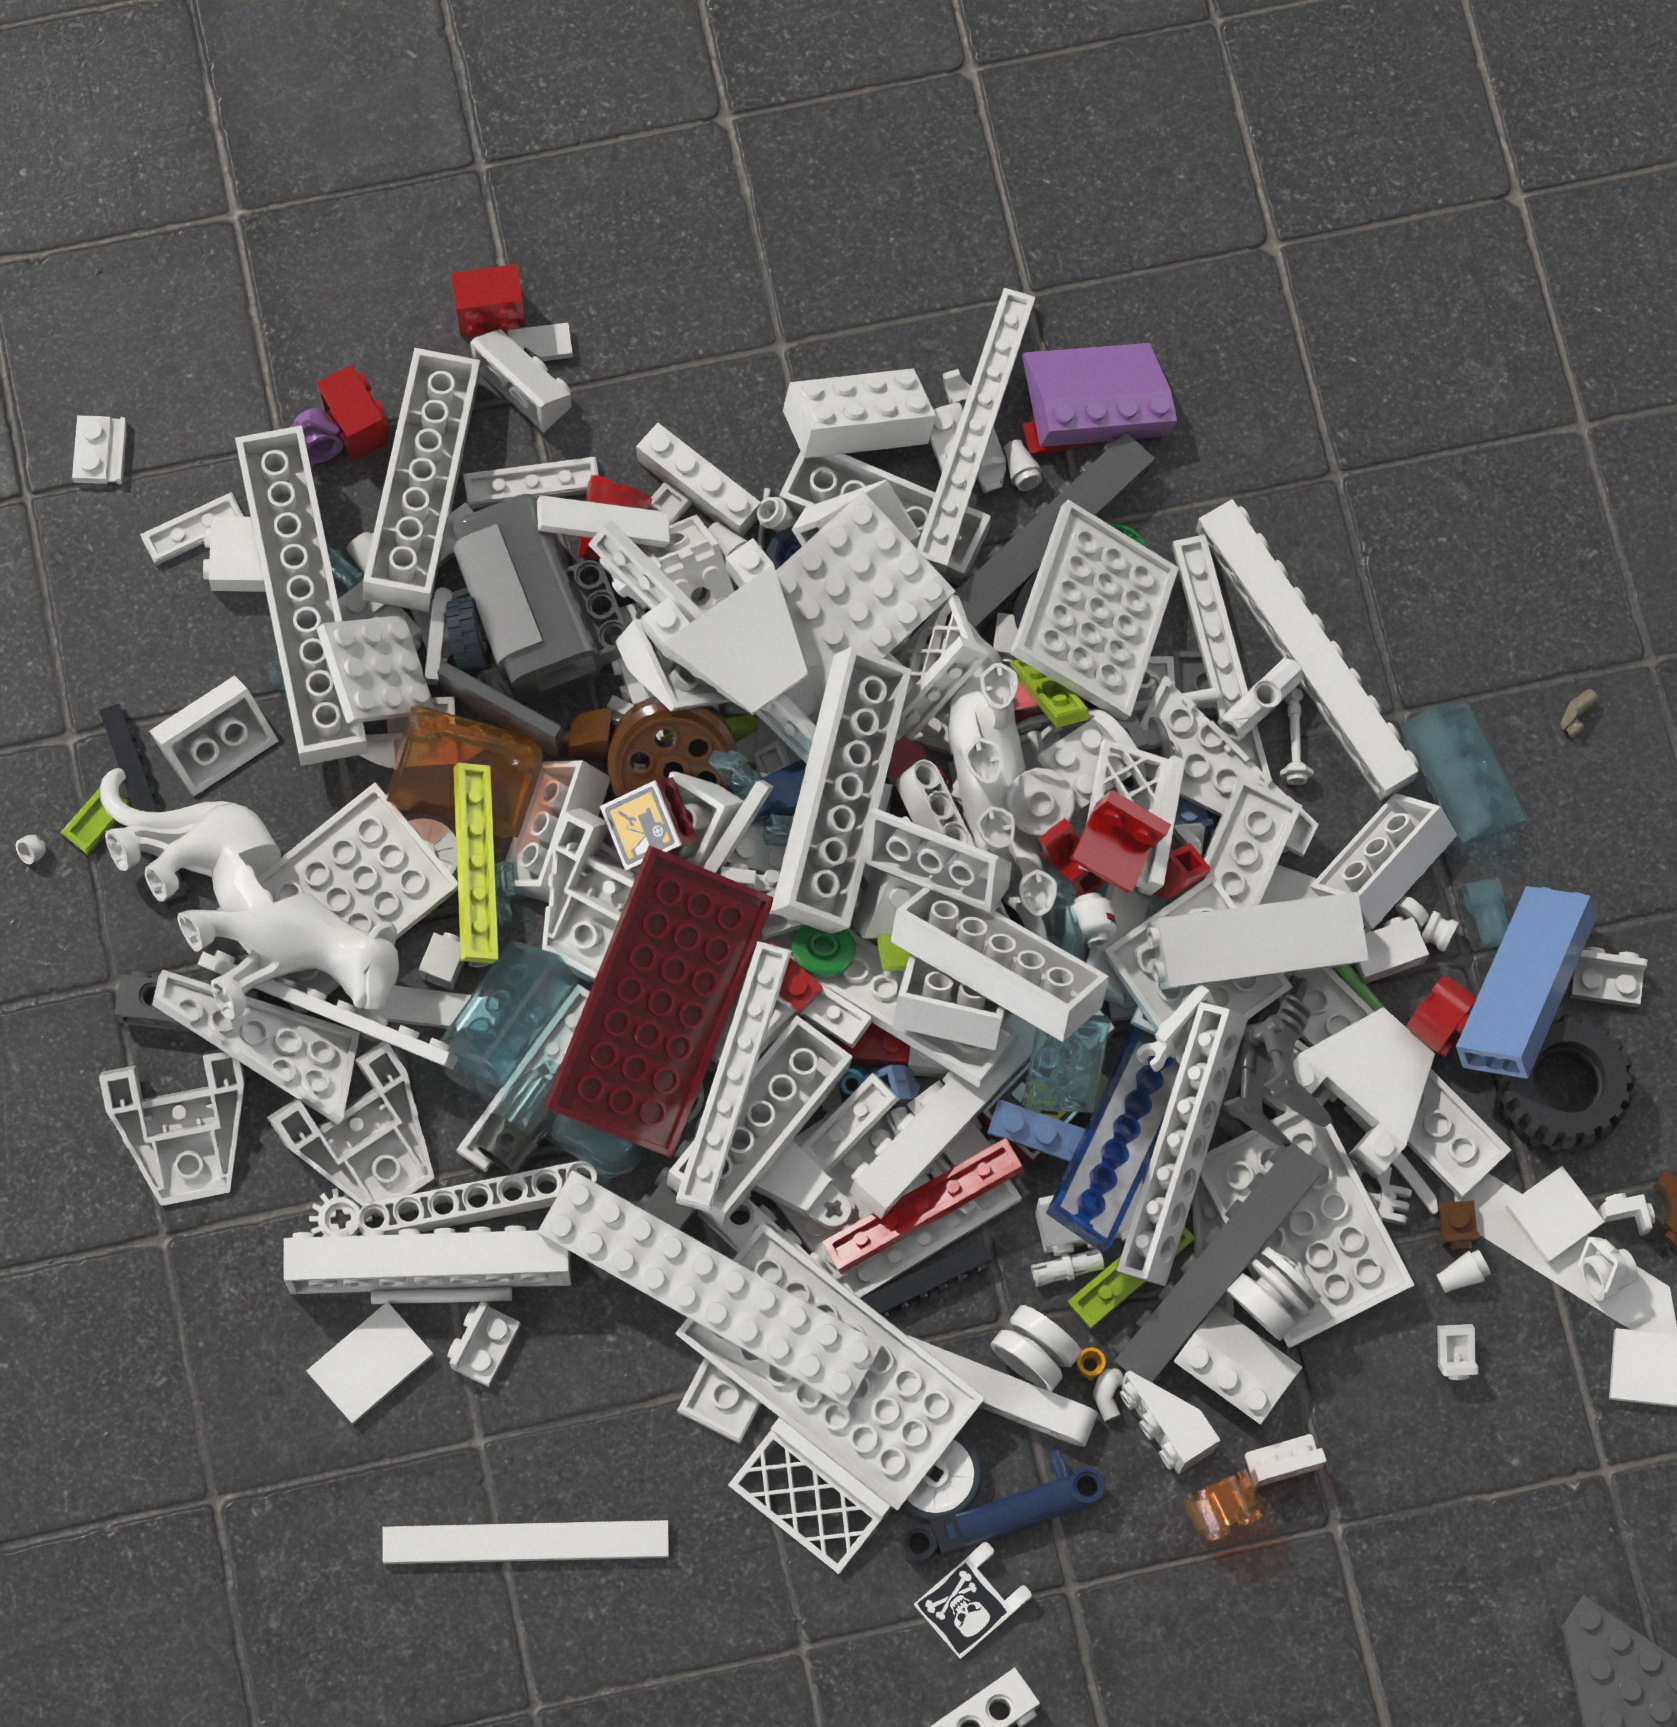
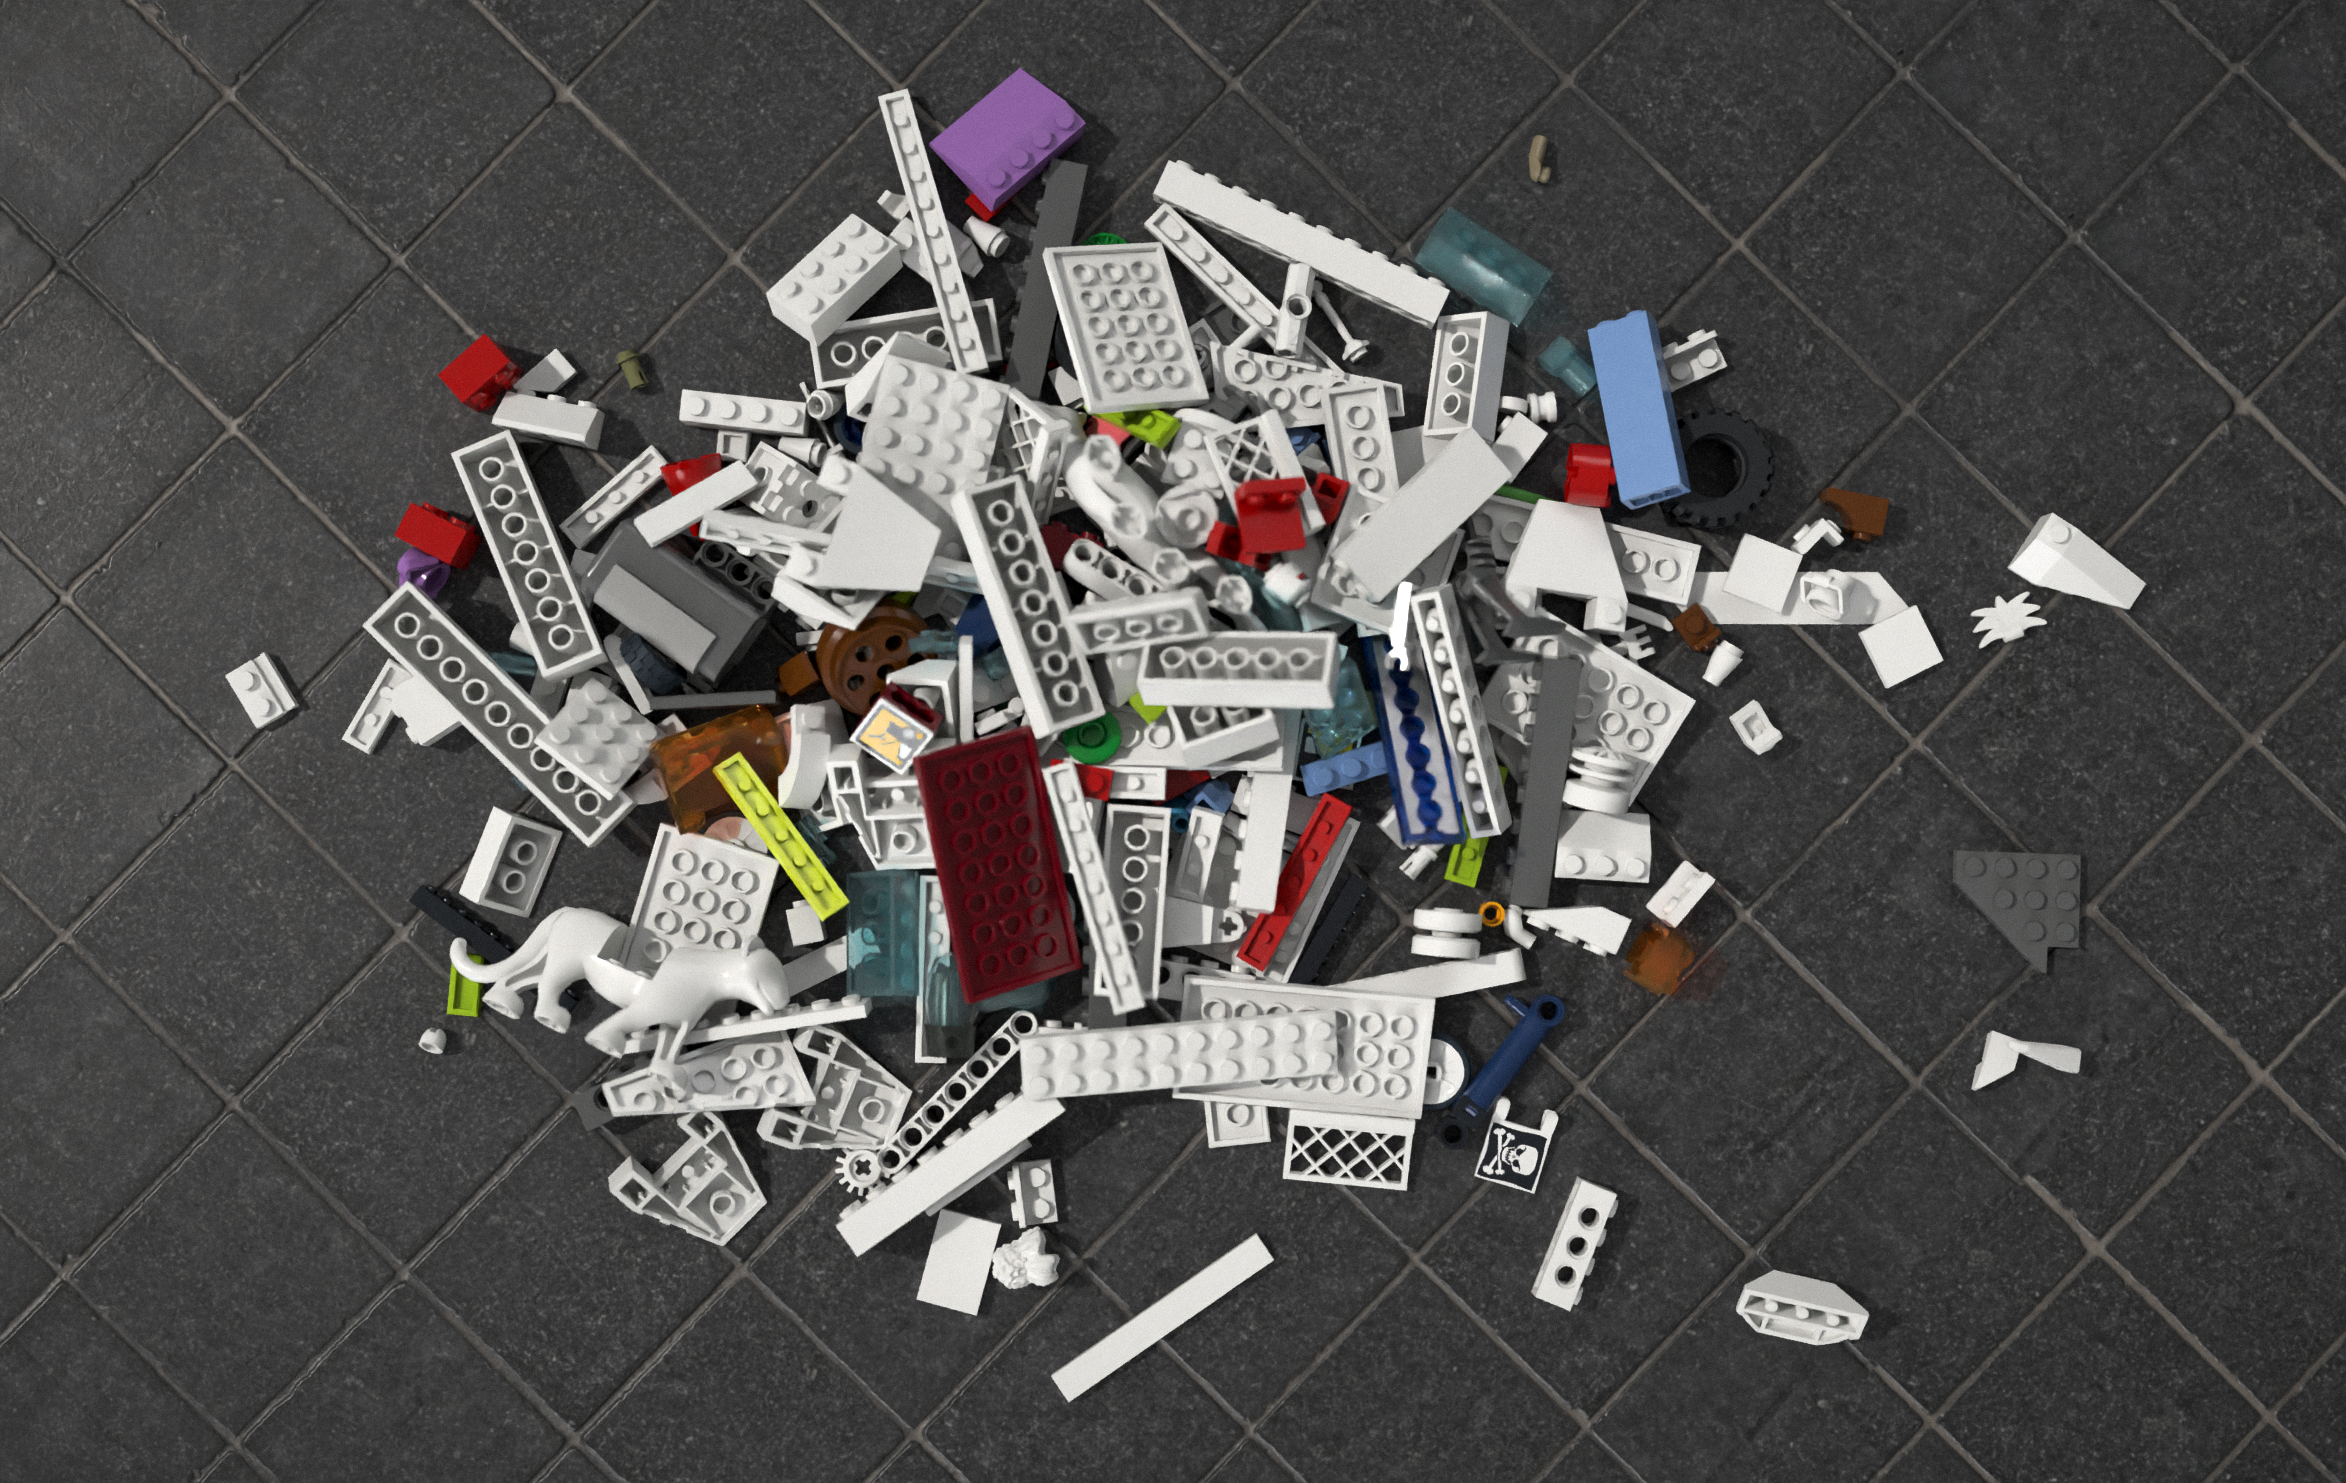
camera: 35 degrees left, 15 degrees up
(433, 1400) = (1025, 1261): none -> white hair
(543, 810) = (807, 766): none -> white arch
(625, 373) = (632, 369): none -> olive pin

